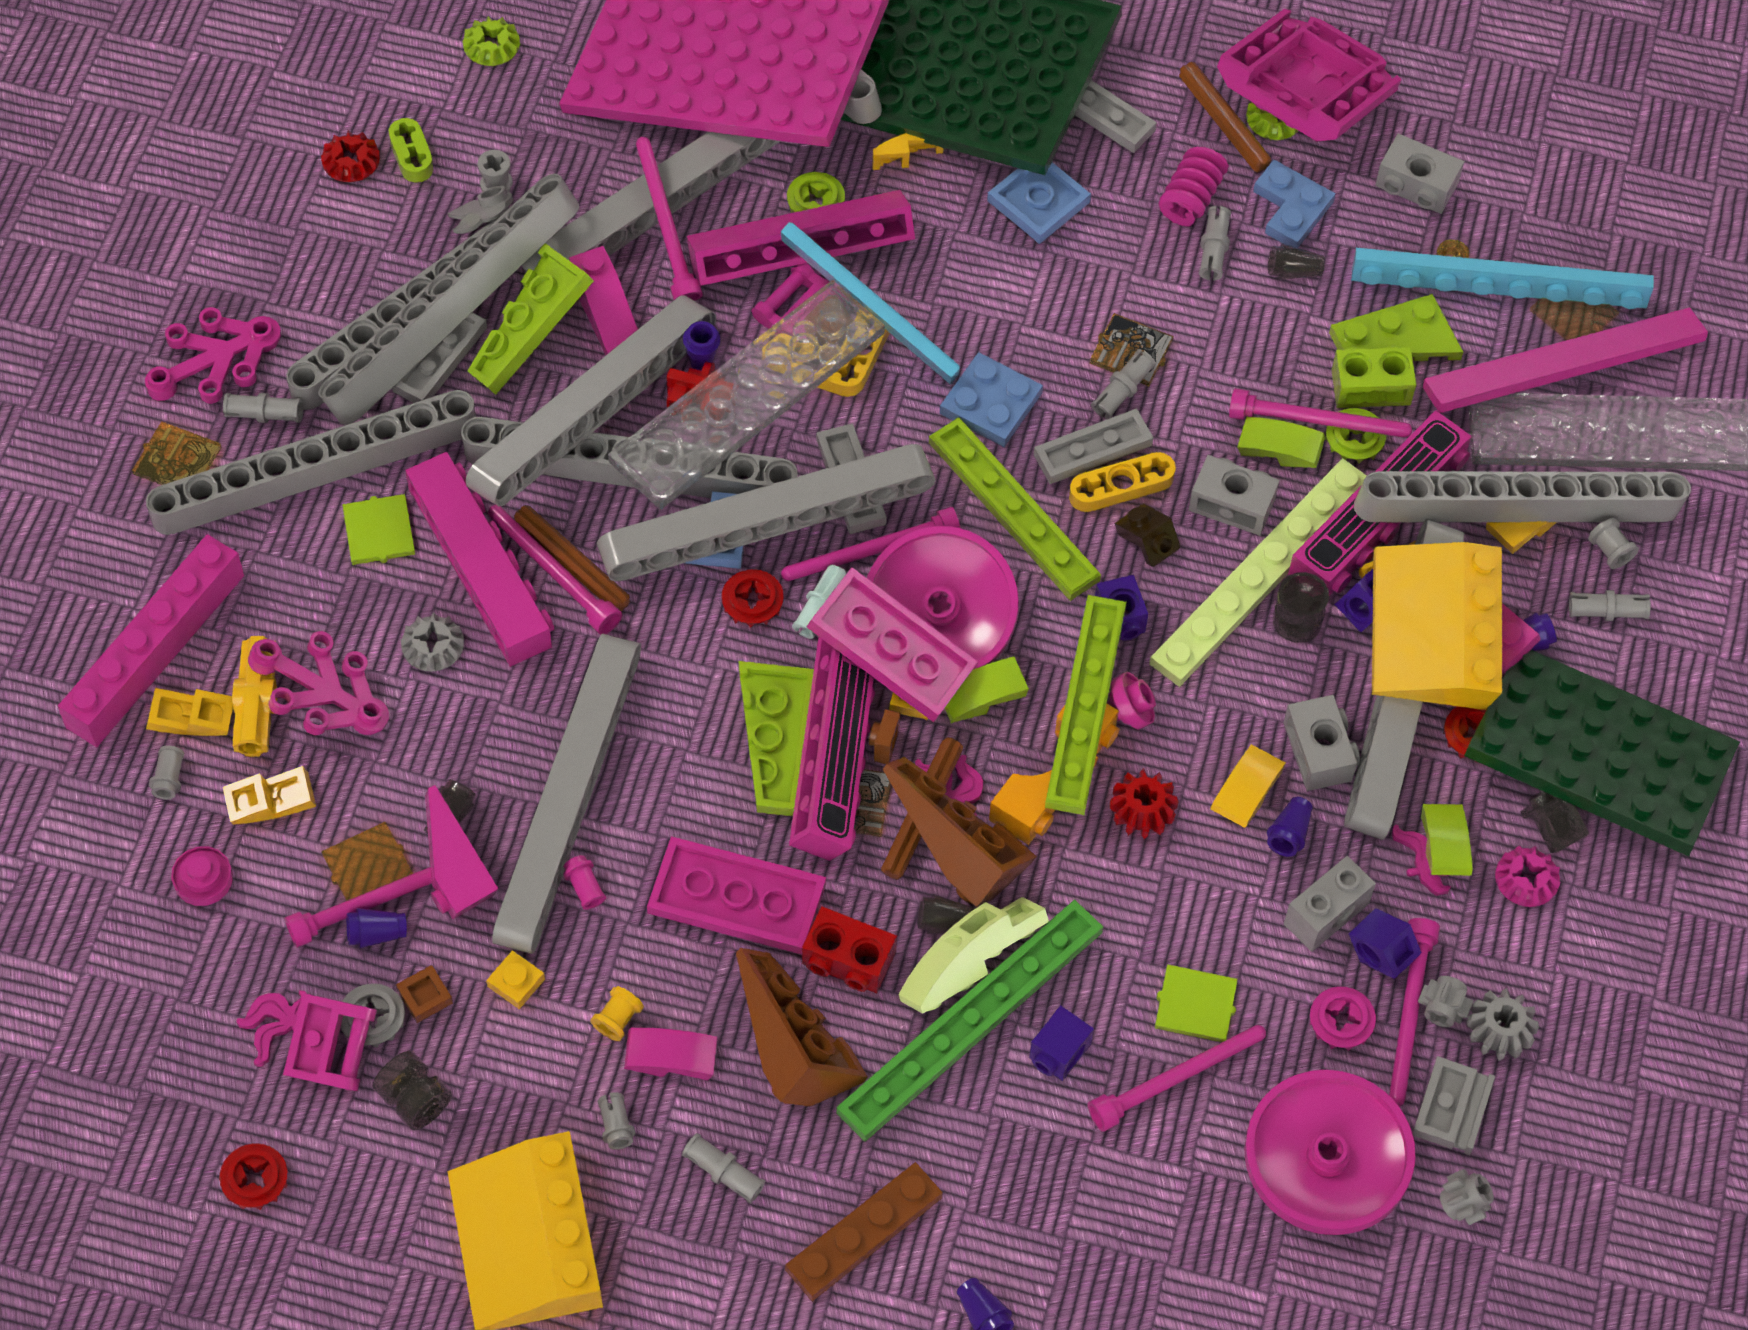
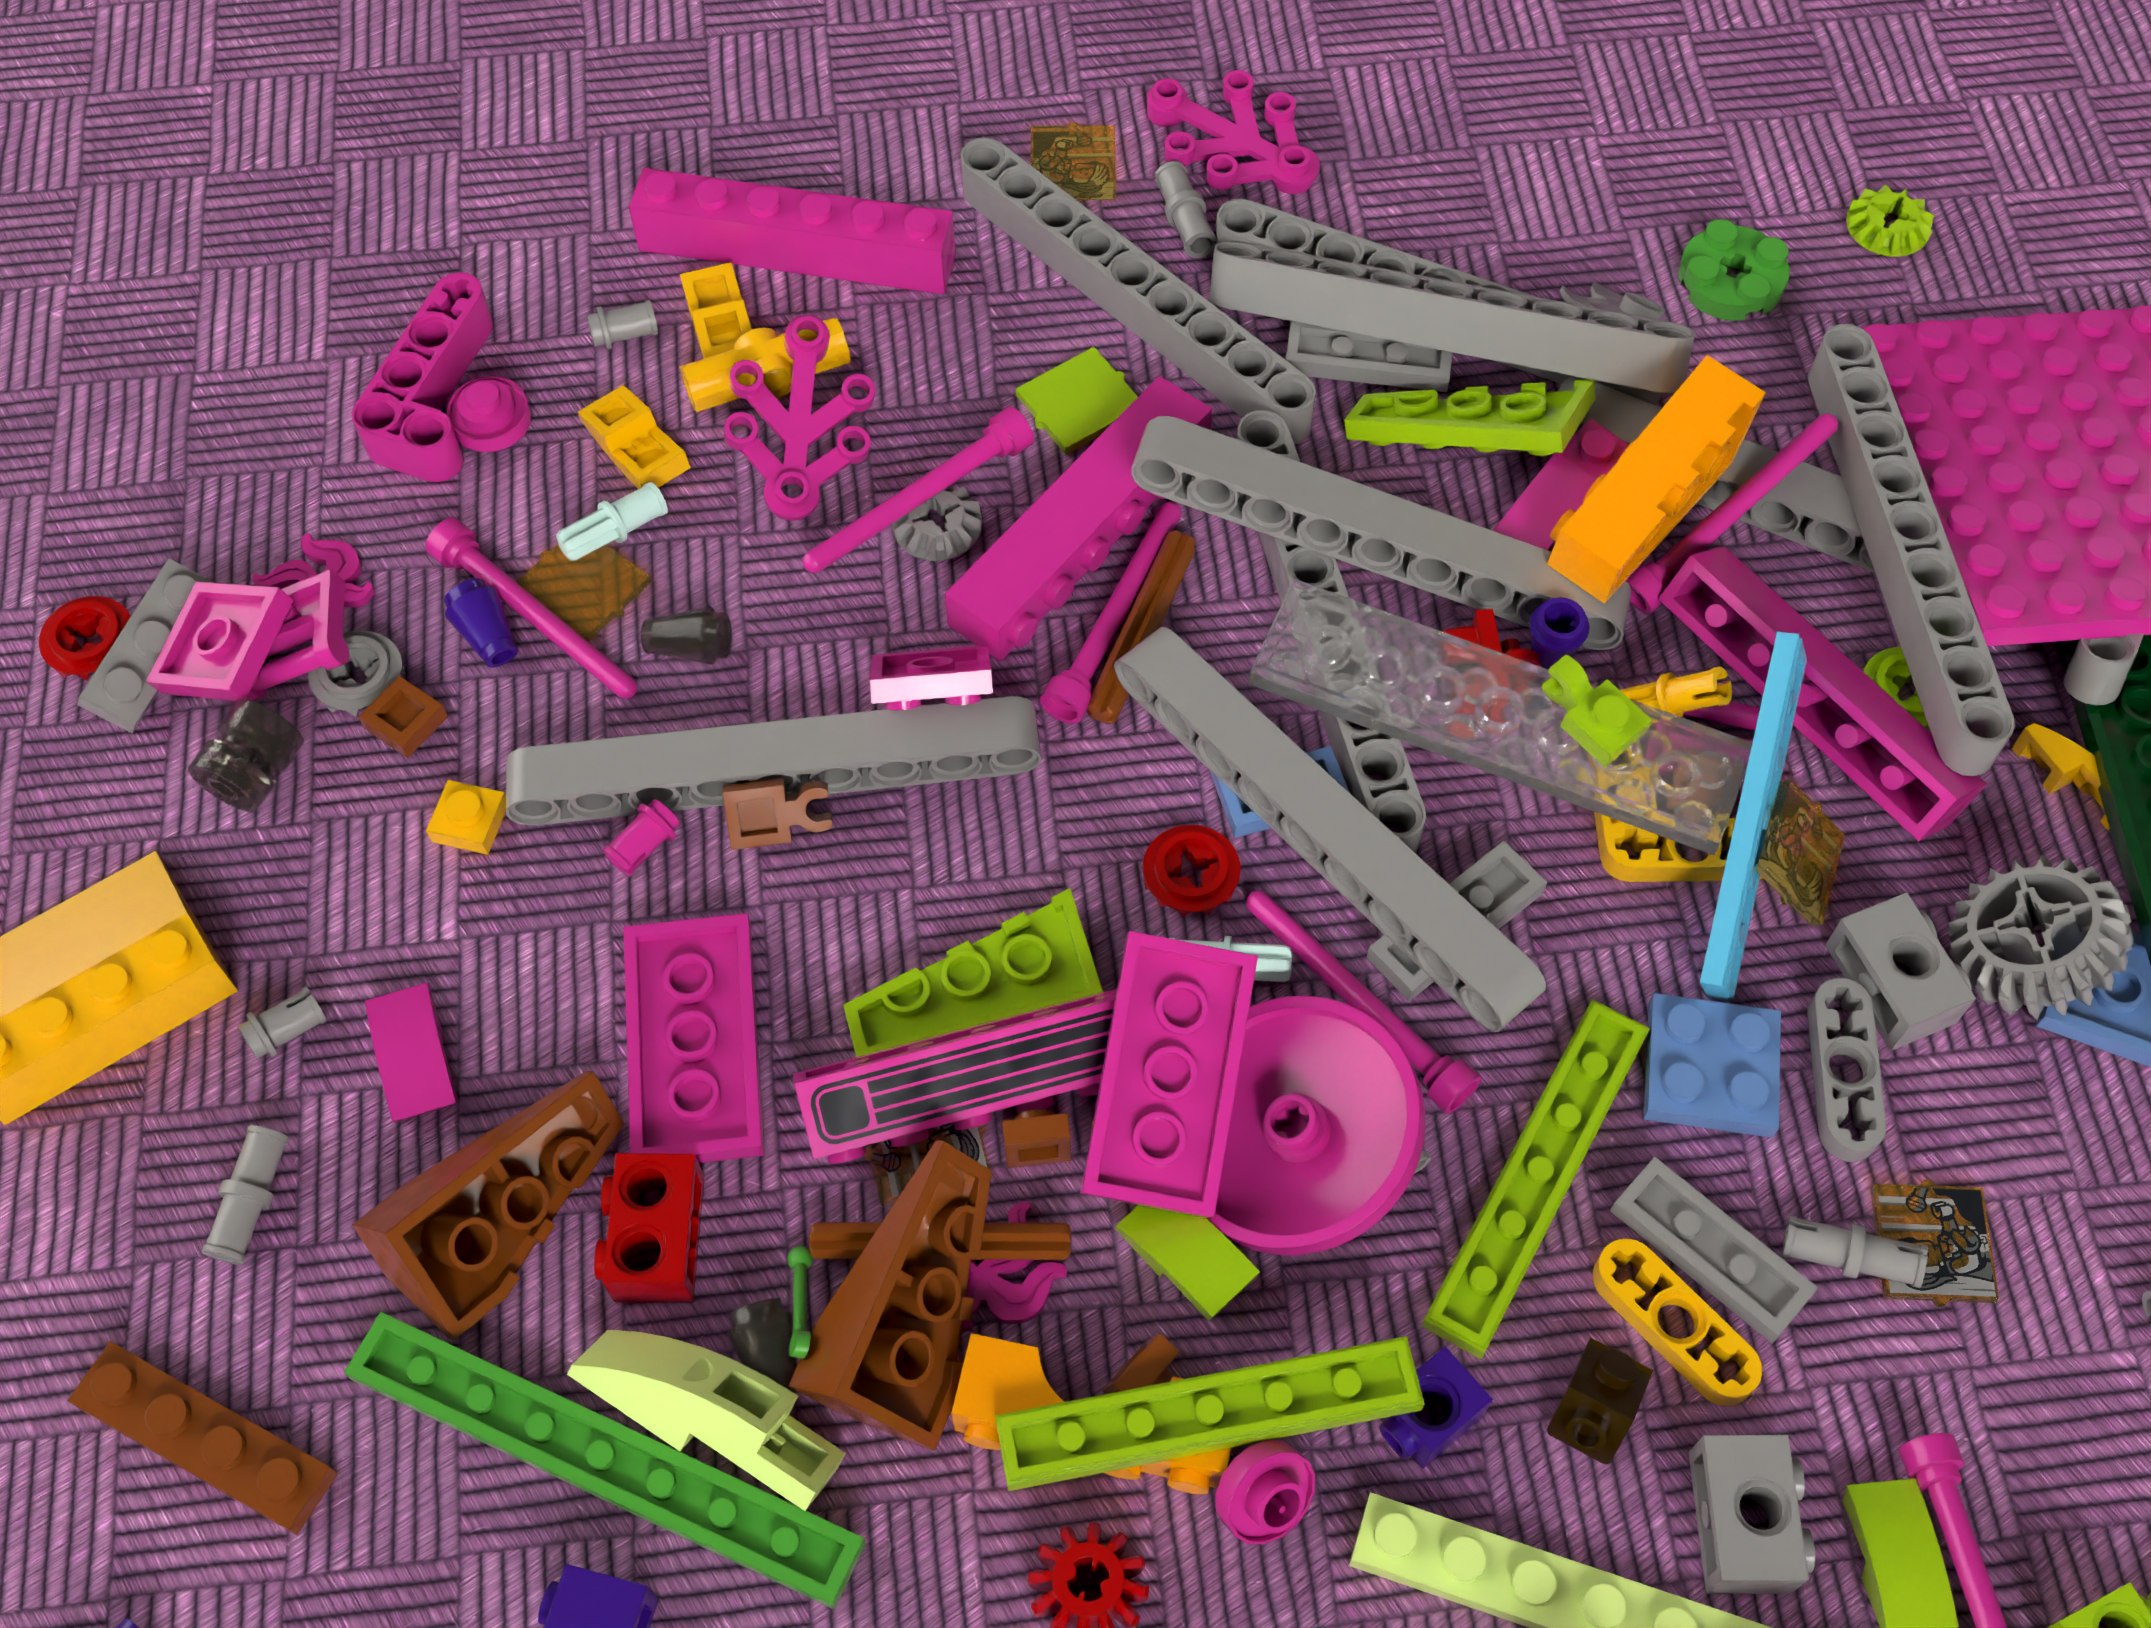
camera: 70 degrees right, 0 degrees up
(147, 900) = (402, 404): none -> dark pink beam
(285, 1135) = (119, 684): none -> light grey plate
(318, 1079) = (220, 641): none -> dark pink plate
(335, 826) = (611, 522): none -> light aqua axle
(345, 168) = (1621, 164): red gear -> none
(398, 574) = (1005, 435): none -> dark pink piece
(404, 152) = (1655, 199): lime beam -> none
(455, 866) = (596, 664): dark pink slope -> none
(476, 121) = (1737, 247): none -> bright green plate
(494, 169) = (1685, 292): light grey bush -> none
(559, 677) = (950, 673): none -> dark pink plate
(602, 804) = (763, 812): none -> dark orange plate
(617, 1013) = (446, 957): yellow bush -> none
(641, 244) = (1655, 480): none -> light orange wedge
(741, 146) = (1911, 554): none -> light grey beam
(773, 305) = (1684, 692): none -> yellow axle
(782, 341) = (1597, 718): none -> lime plate
(897, 295) = (1800, 853): none -> clear yellow piece
(957, 889) = (799, 1260): none -> bright green hinge
(969, 298) = (1903, 1004): none -> light grey brick
(1003, 183) = (2081, 927): none -> light grey gear
(1016, 325) = (1832, 1093): none -> light grey beam
(1041, 735) = (1145, 1366): none -> dark orange plate

